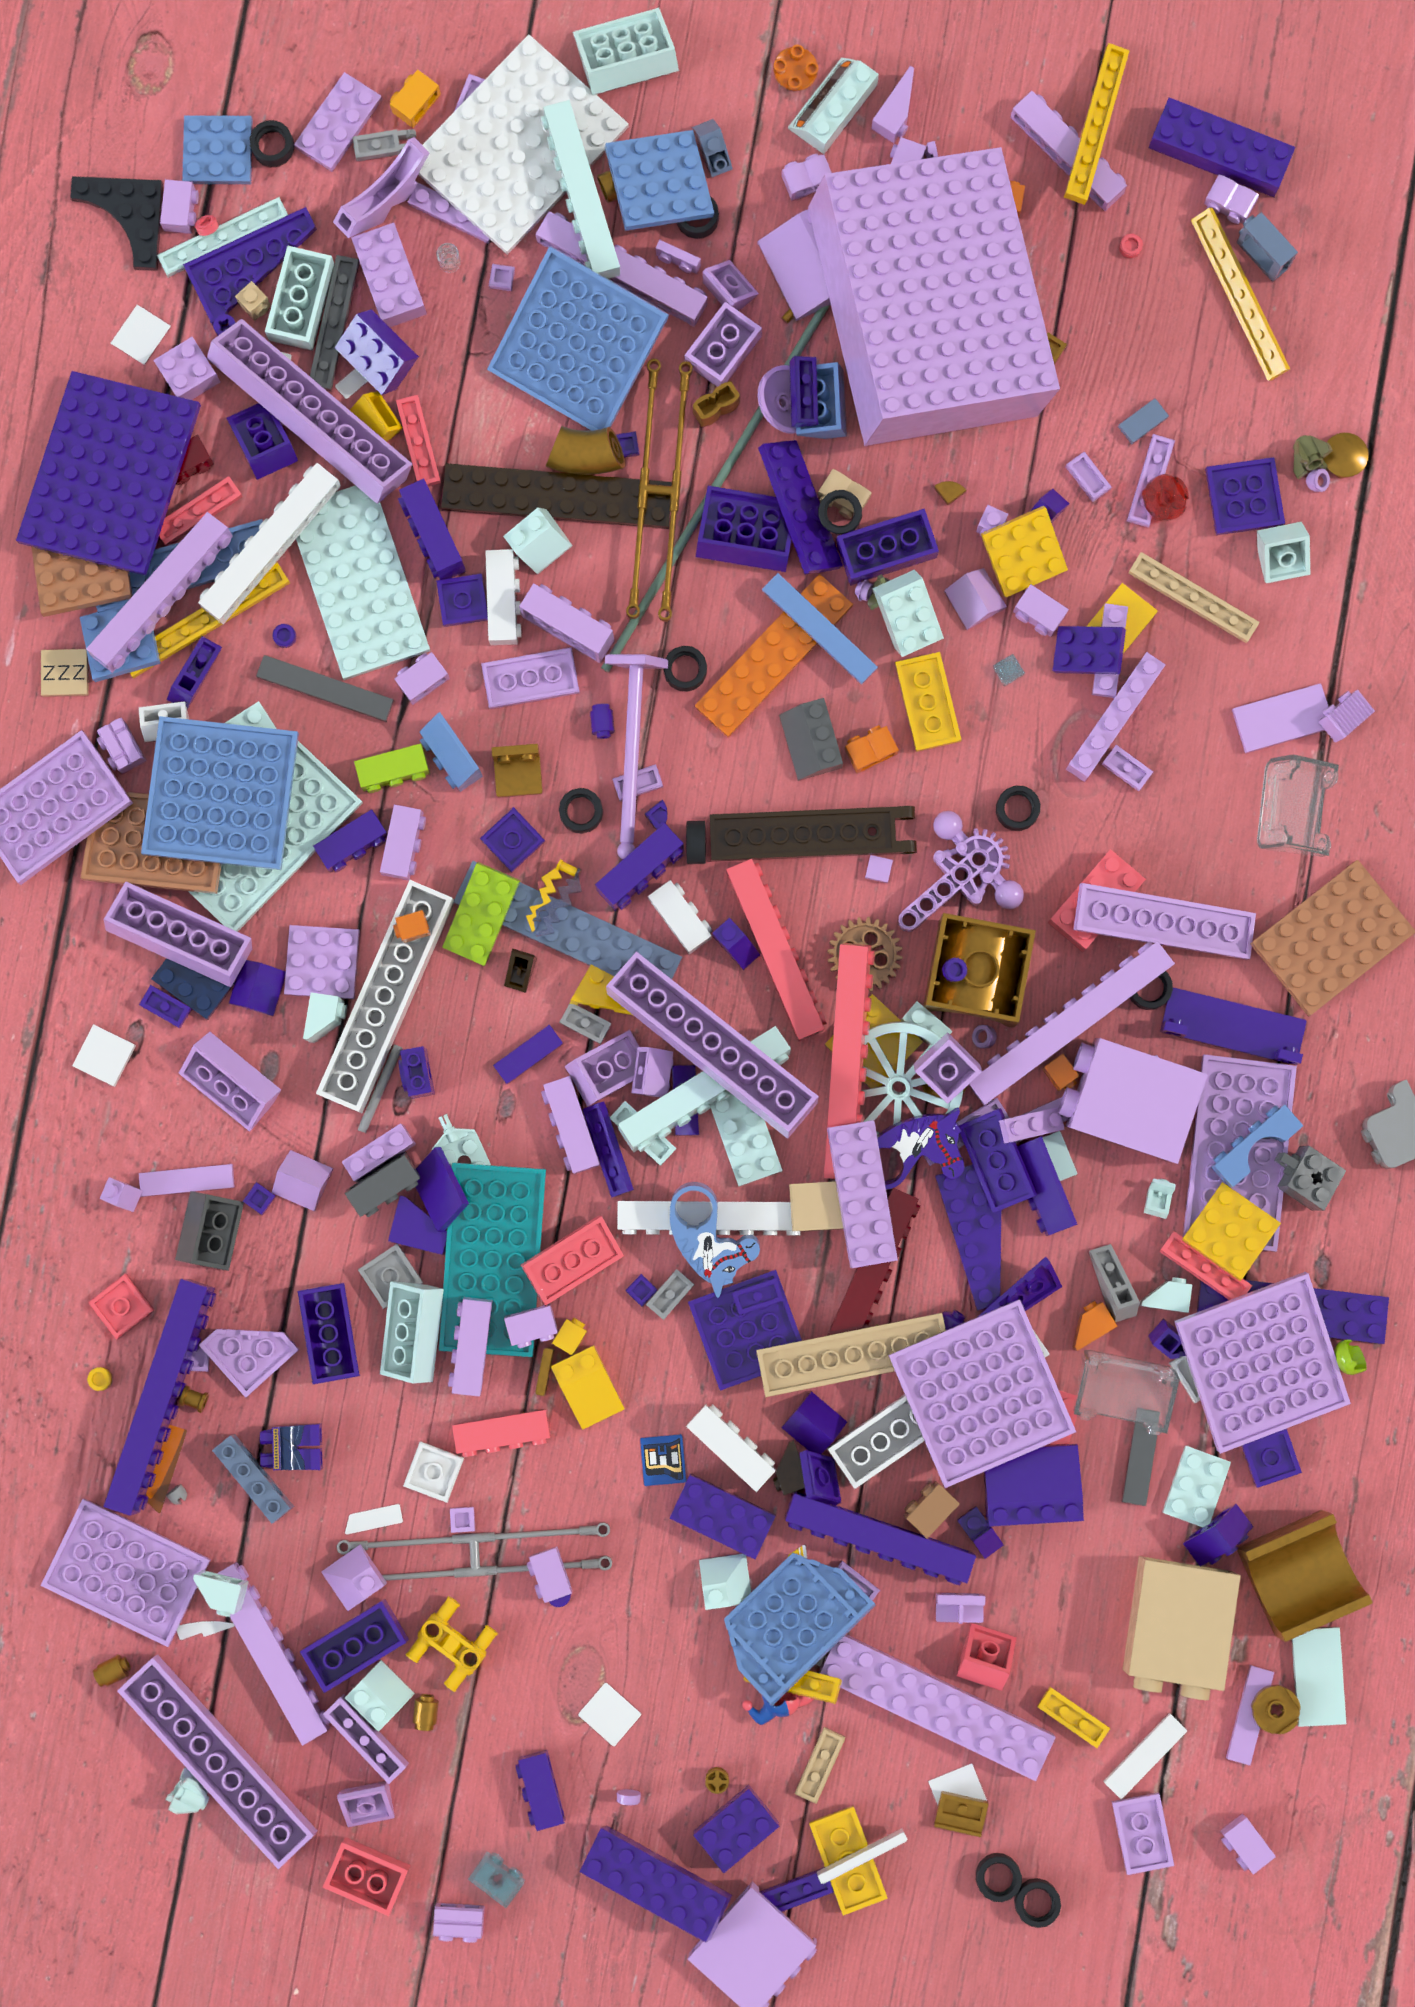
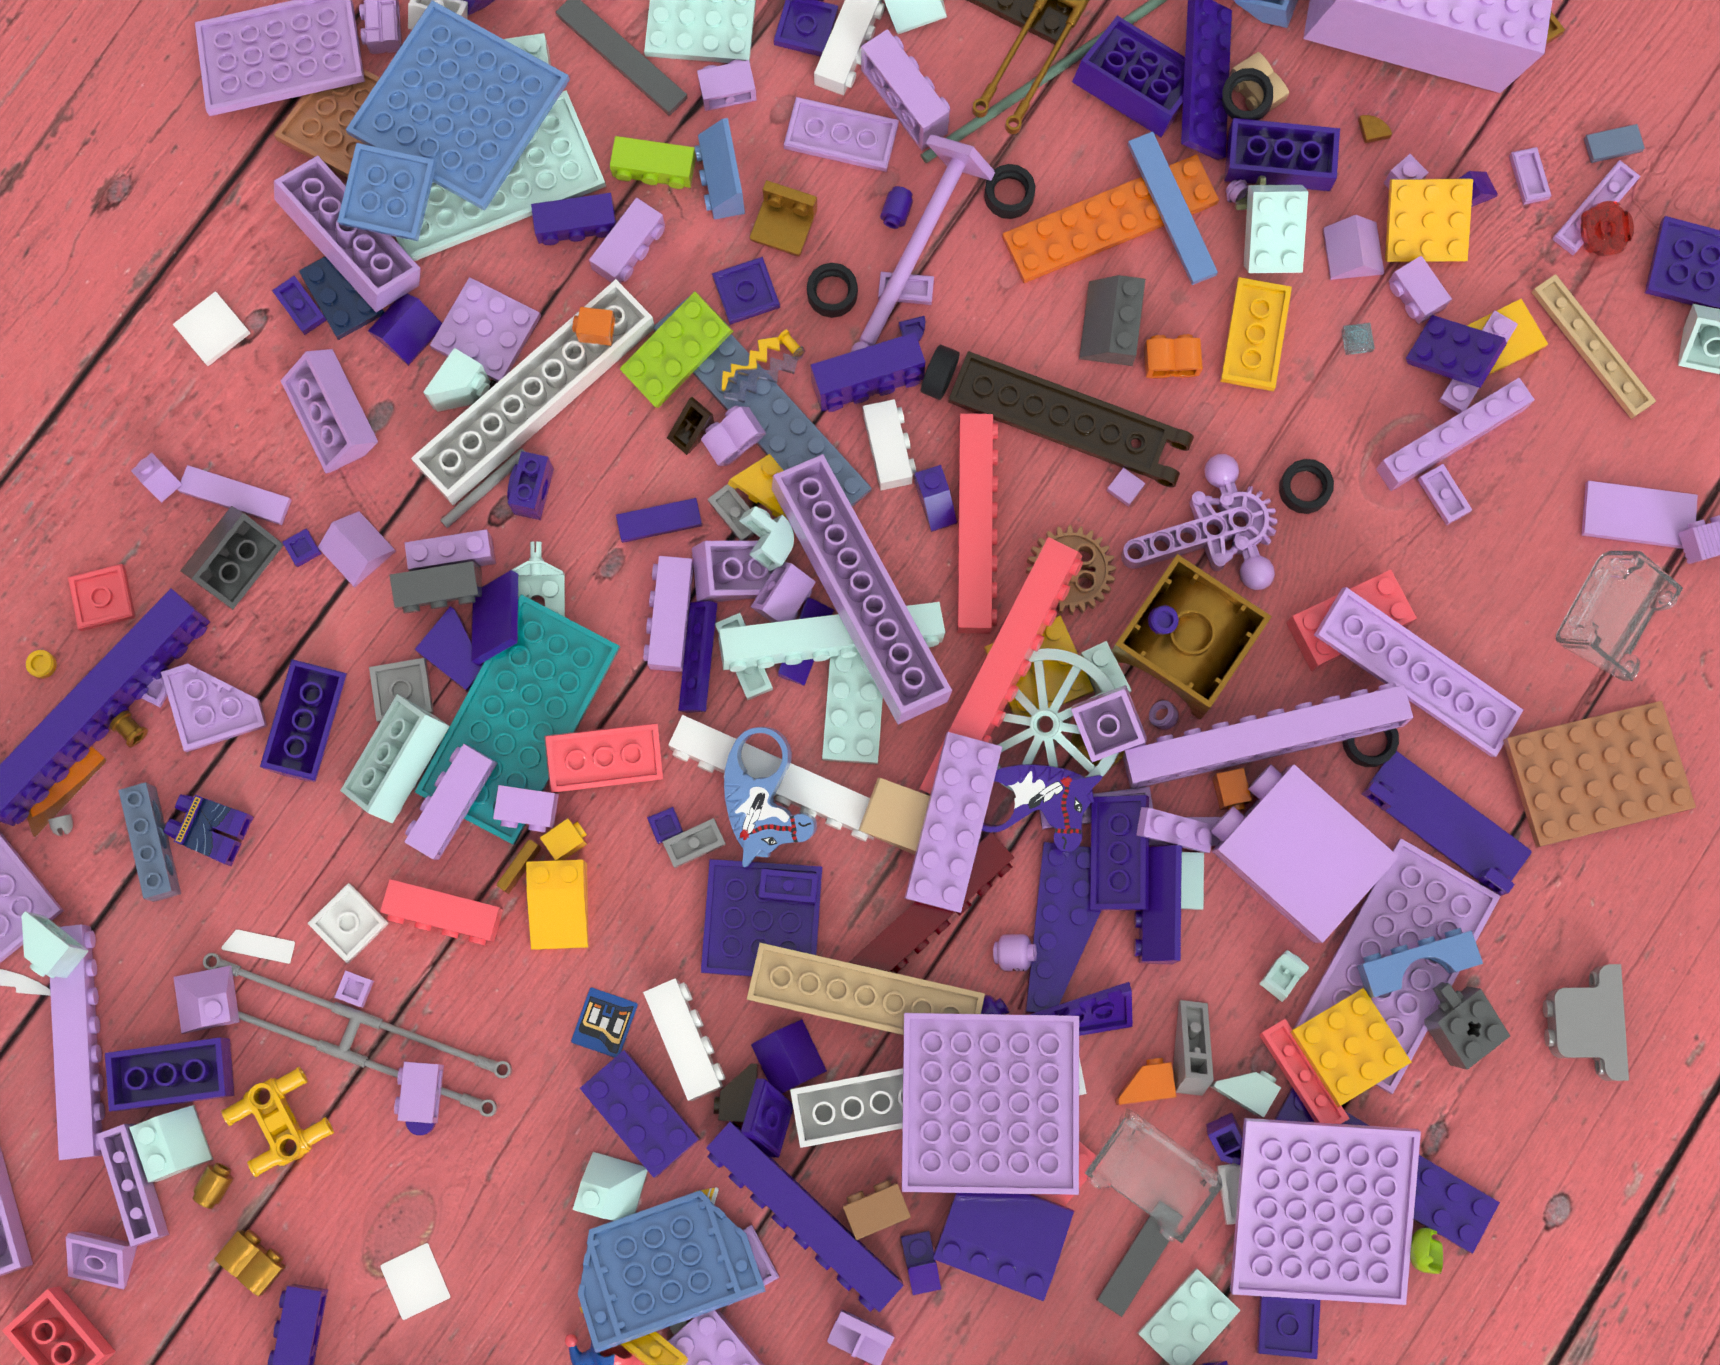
camera: 20 degrees right, 5 degrees down
(199, 890) = (387, 192): none -> medium blue plate
(481, 1755) = (250, 1261): none -> pearl gold brick
(556, 963) = (733, 435): none -> lavender brick
(626, 1030) = (775, 537): none -> light aqua brick
(950, 1270) = (1014, 952): none -> lavender head

